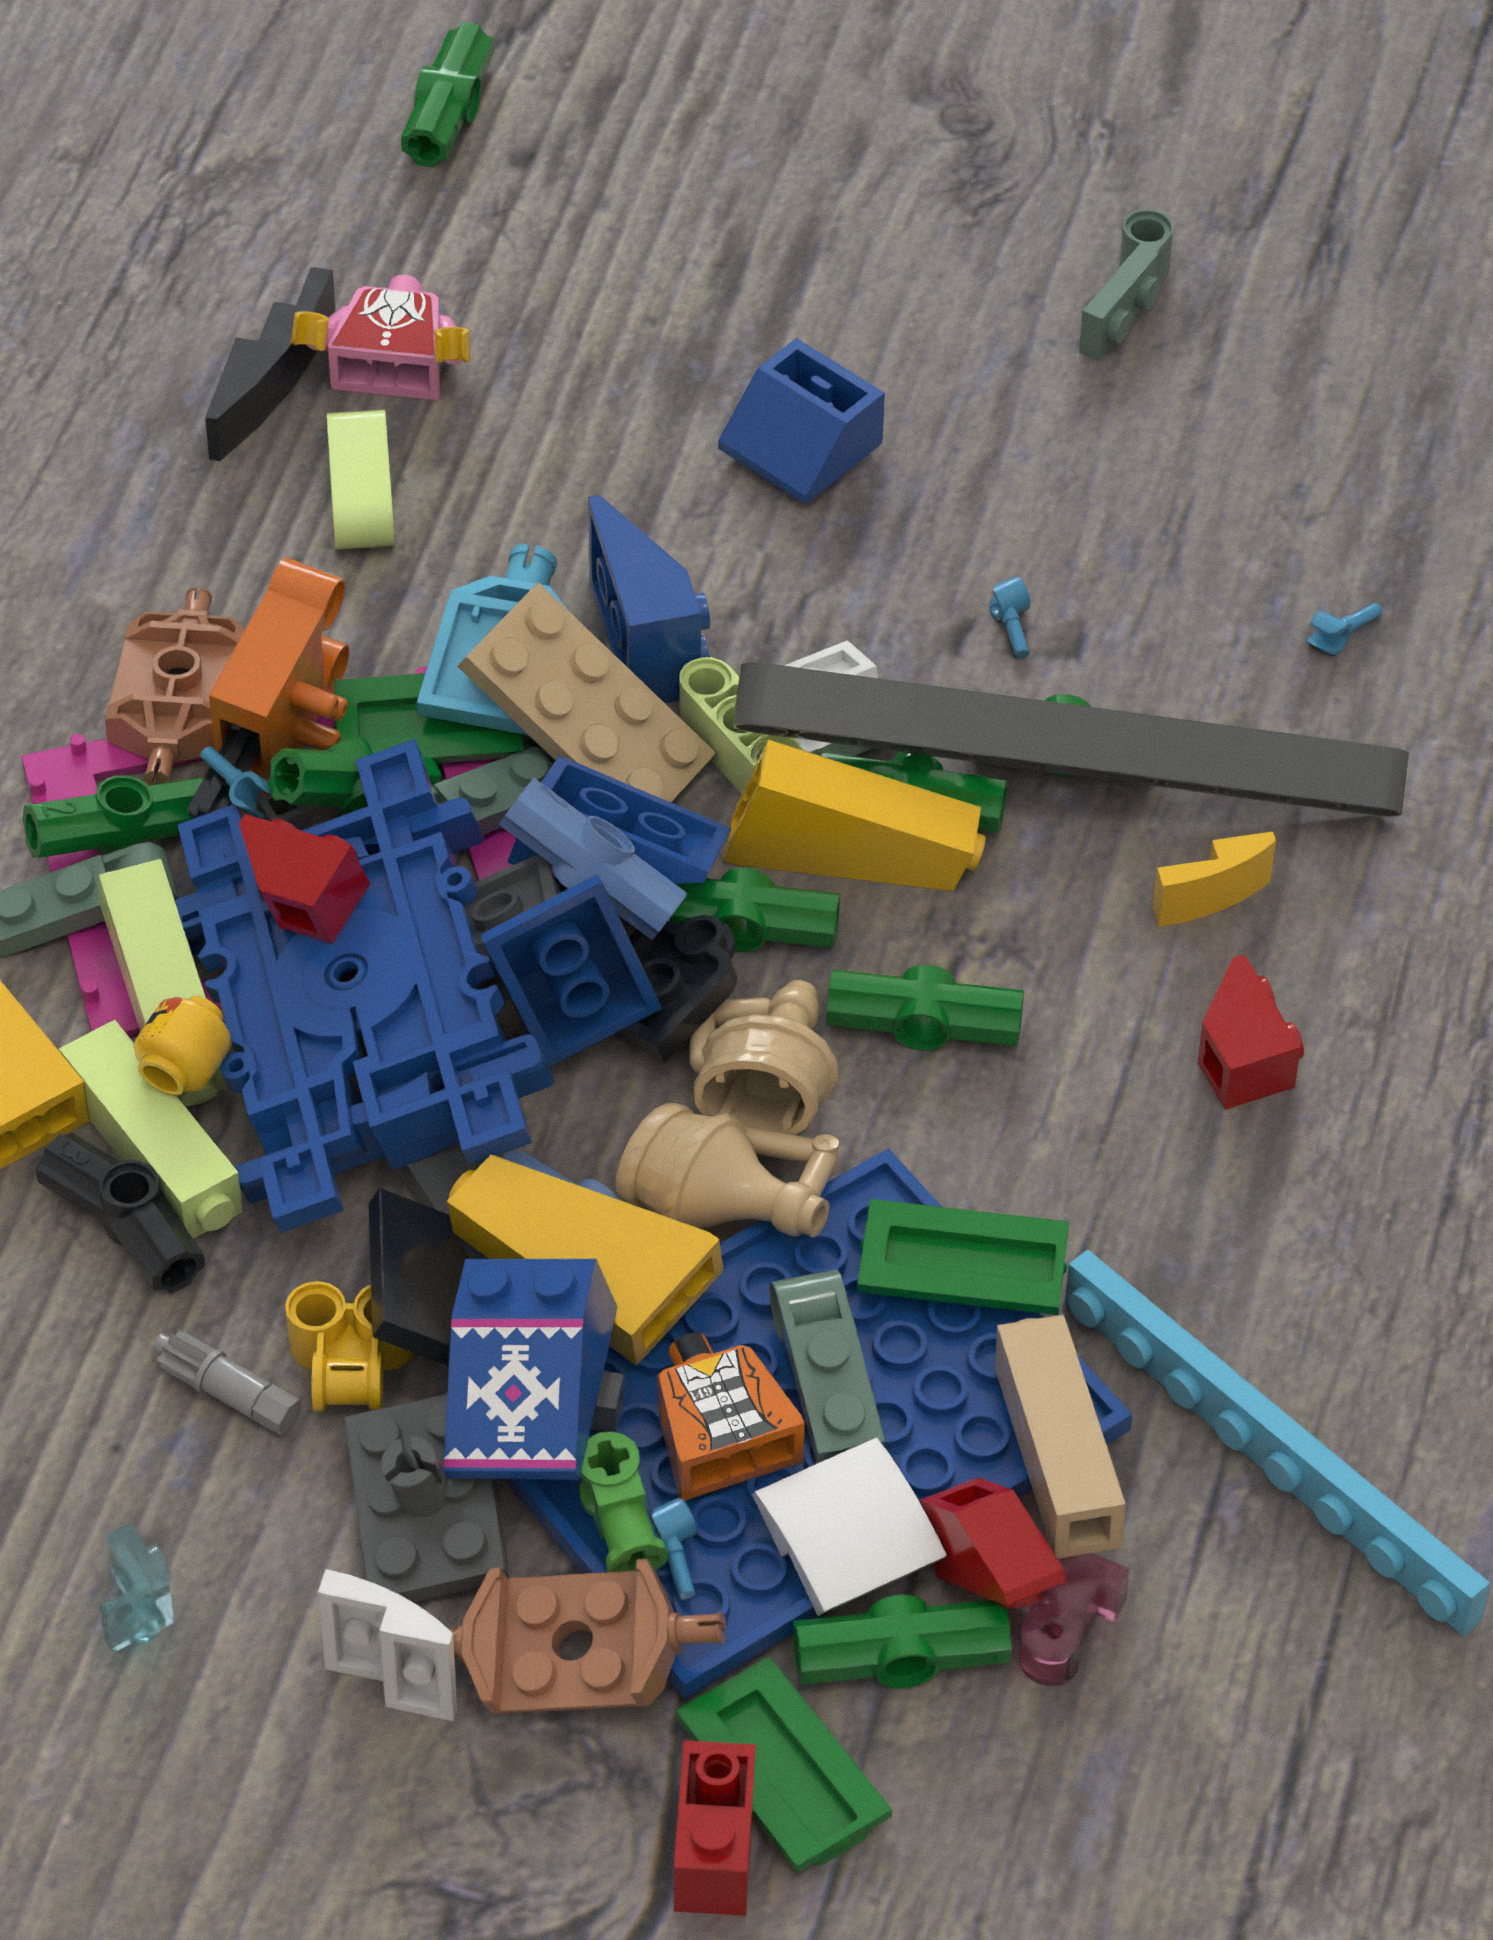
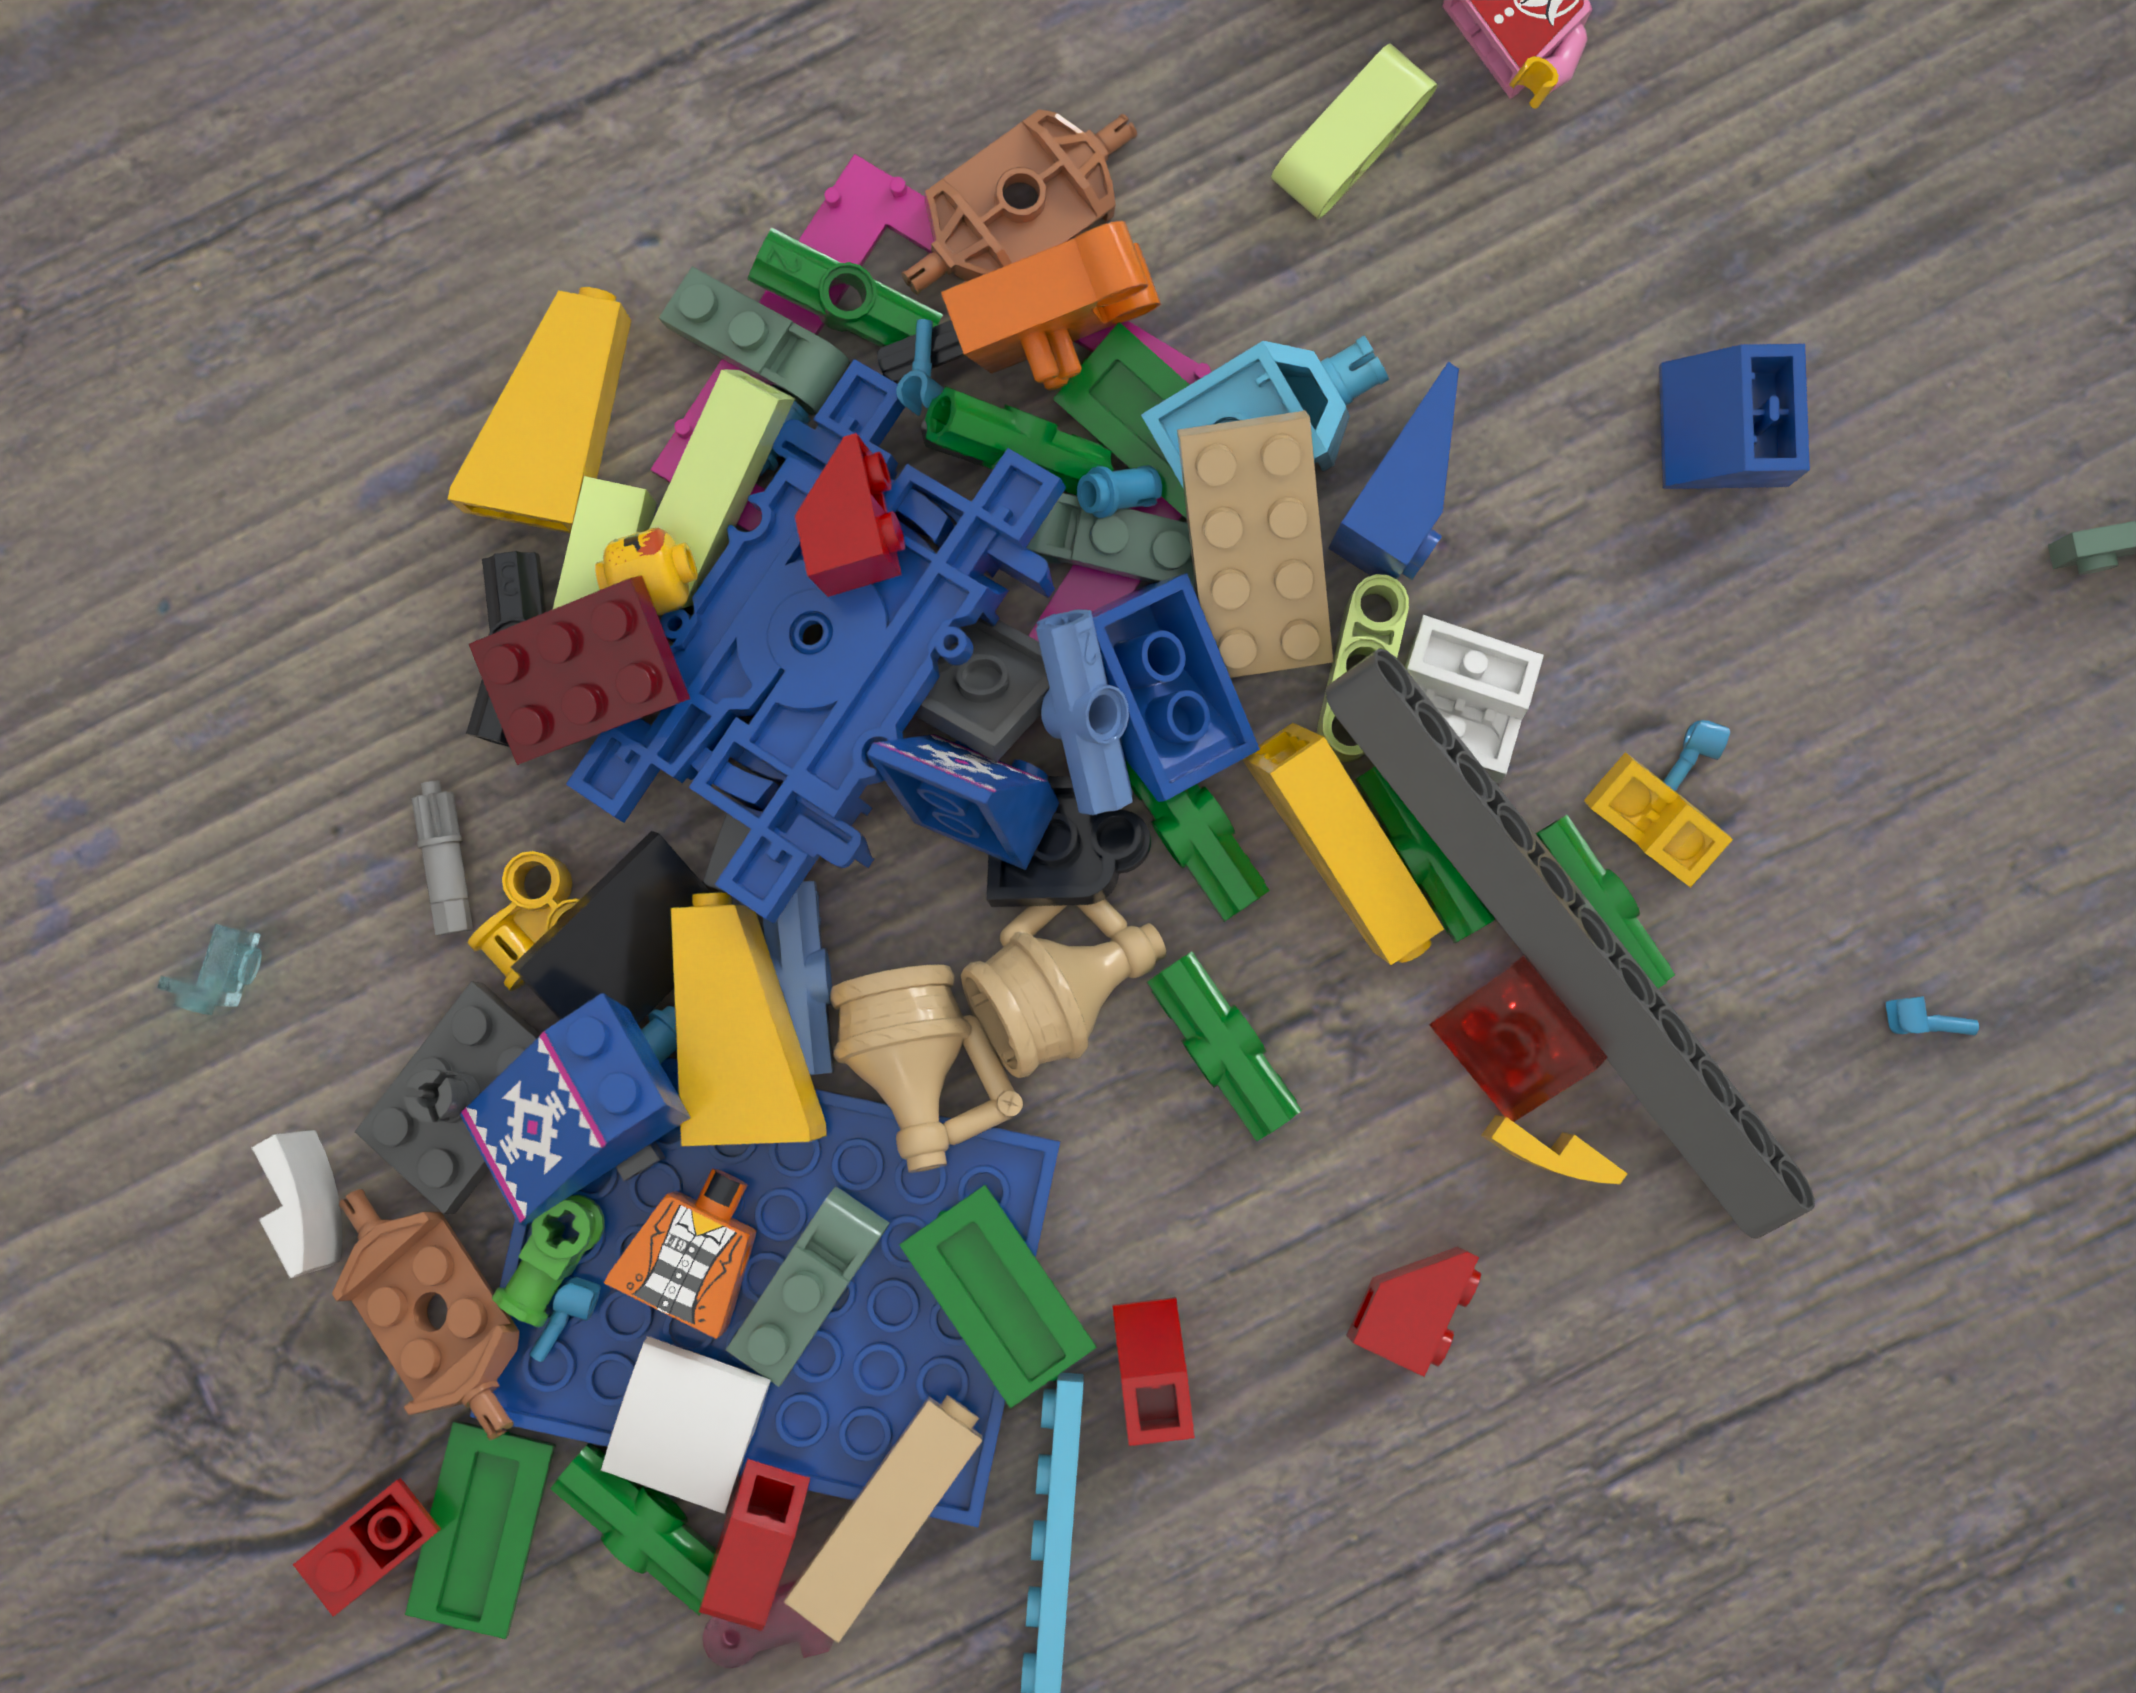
camera: 50 degrees right, 35 degrees up
(204, 1130) = (579, 670): none -> dark red plate
(450, 757) = (1107, 490): none -> dark azure pin
(1039, 663) = (1658, 819): none -> yellow slope
(1106, 826) = (1518, 1040): none -> clear red plate
(1133, 1218) = (1153, 1371): none -> red slope

